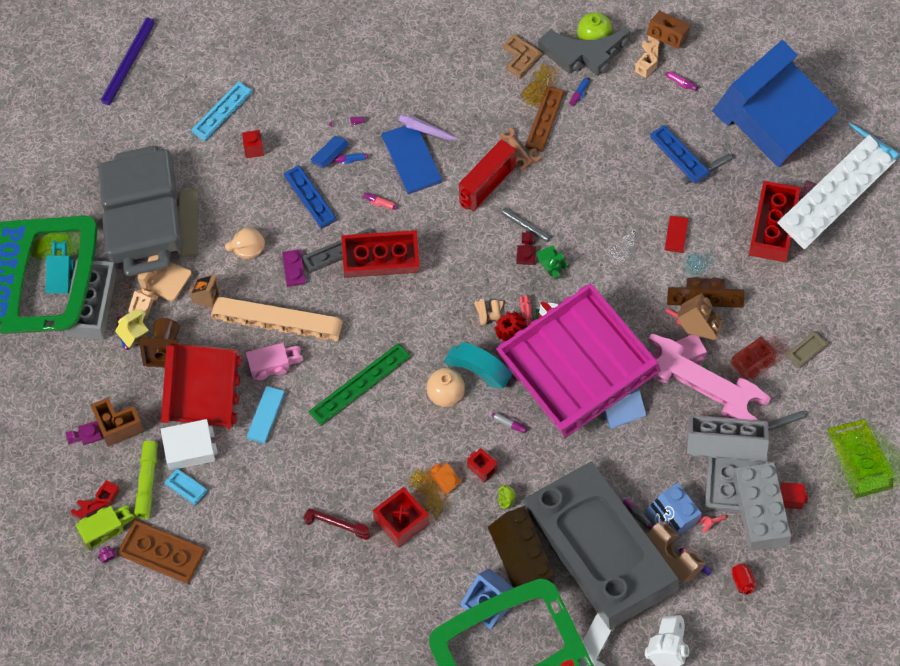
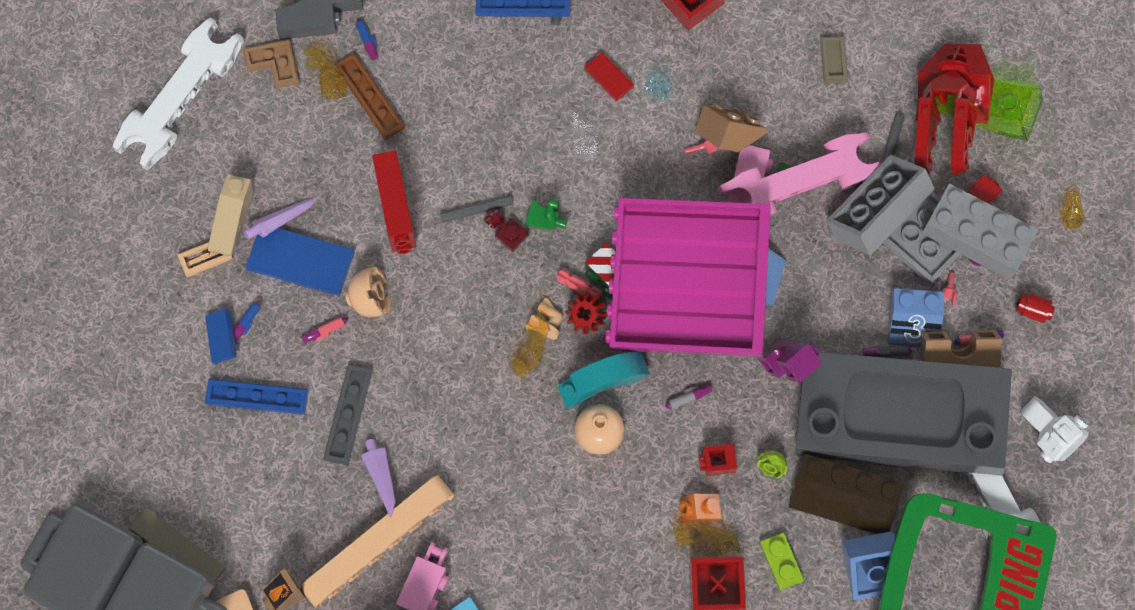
camera: 55 degrees left, 10 degrees up
(221, 111) = (68, 410): medium azure tile -> none
(246, 243) = (258, 505): light nougat piece -> none
(252, 144) = (142, 407): red brick -> none
(293, 268) = (329, 477): magenta plate -> none
(320, 287) = (378, 468): none -> lavender bar
(348, 122) = (200, 290): piece -> none
(359, 384) = (523, 513): green tile -> none
(368, 115) = (204, 266): none -> light nougat tile
(380, 254) = (395, 377): red brick -> none
(408, 100) = (230, 214): none -> tan slope
(421, 202) = (366, 291): none -> light nougat cylinder
(449, 546) = (781, 561): none -> lime plate
(464, 316) = (538, 340): none -> clear yellow piece
(465, 21) = (155, 124): none -> white piece
(524, 158) = (402, 147): nougat bar -> none
(576, 452) = (790, 358): none -> magenta arch
(711, 288) = (694, 95): reddish brown bracket -> none
(754, 358) = (808, 114): clear red brick -> none
(829, 559) = (1072, 211): none -> clear yellow cone
(832, 432) = (959, 72): none -> red connector

